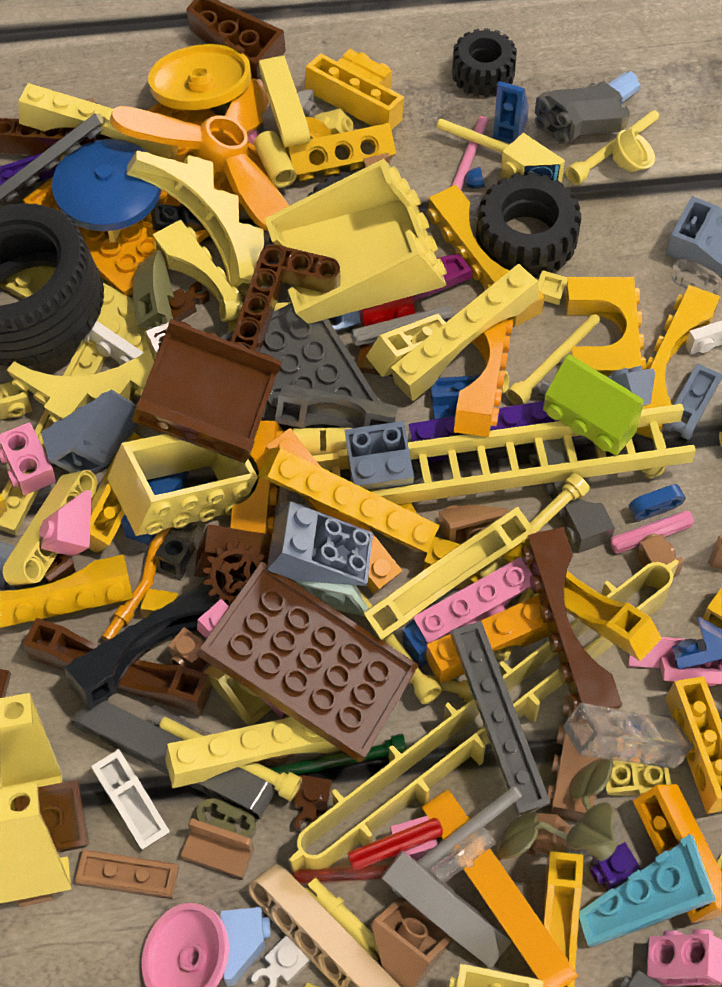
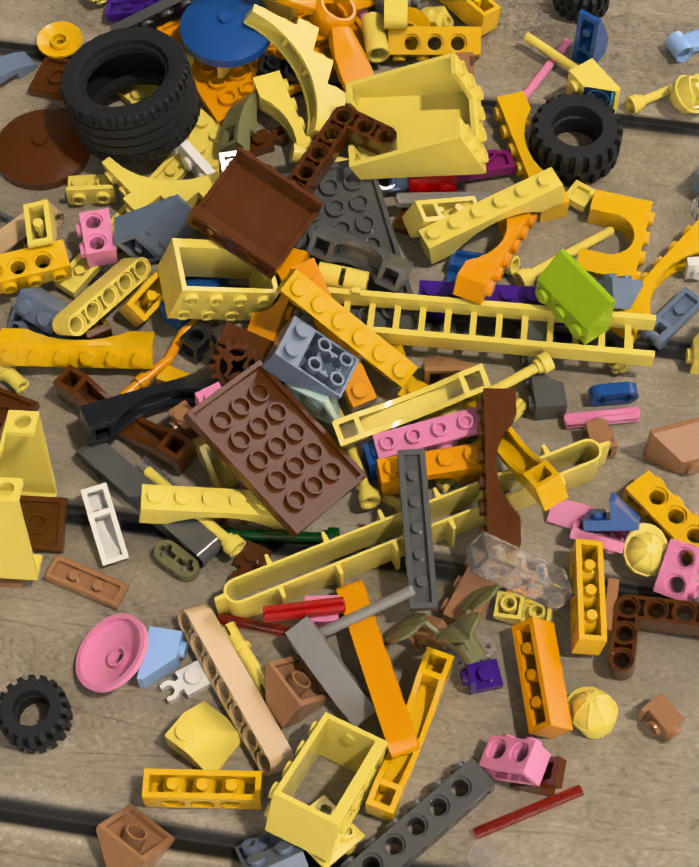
camera: 15 degrees right, 0 degrees up
(68, 527) = (114, 297): bright pink slope -> none
(218, 849) = (163, 580): medium nougat panel -> none
(379, 456) = (383, 299): sand blue slope -> none
(463, 855) = (355, 631): clear pin -> none
(474, 178) = (544, 90): blue hinge -> none
(581, 112) = (652, 52): dark grey brick -> none
(658, 892) = (504, 702): medium azure wing -> none

